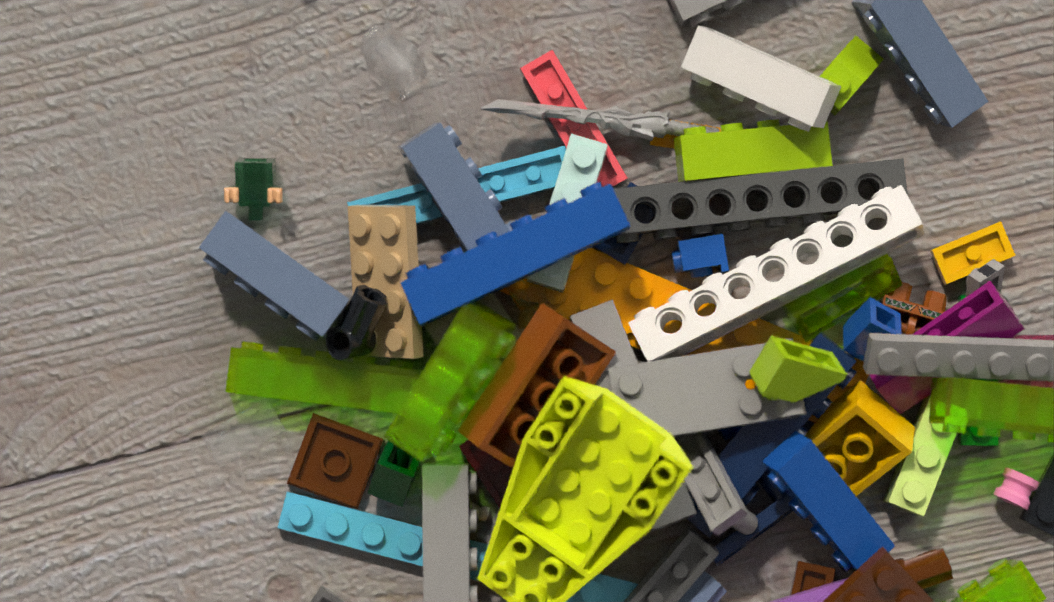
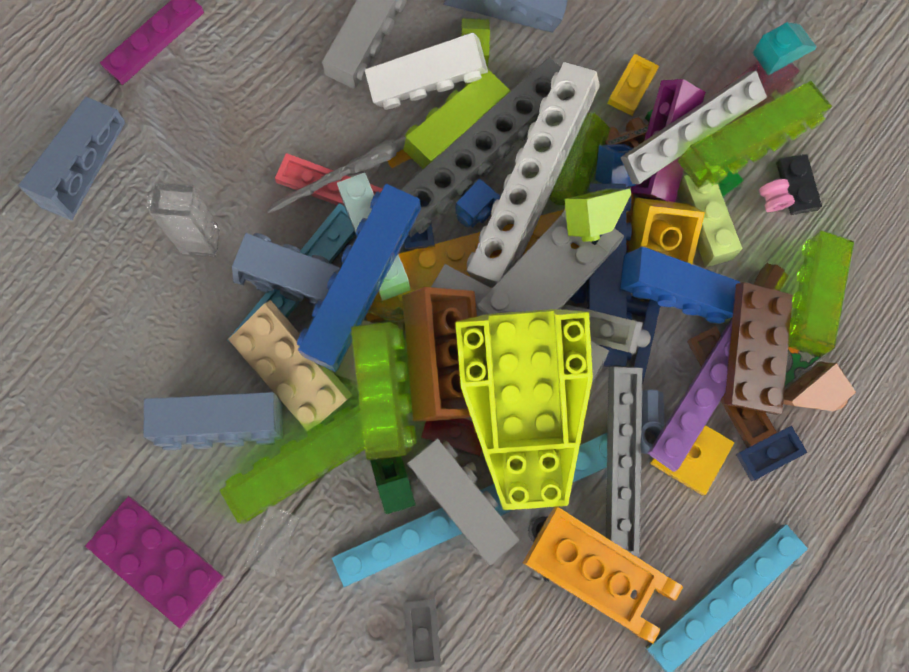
camera: 45 degrees left, 10 degrees down
(123, 363) = (155, 562): none -> magenta plate
(254, 186) = (157, 376): clear green piece -> none
(335, 461) = (348, 512): reddish brown tile -> none
(356, 331) = (295, 413): black piece -> none
(991, 271) = (652, 88): light grey plate -> none

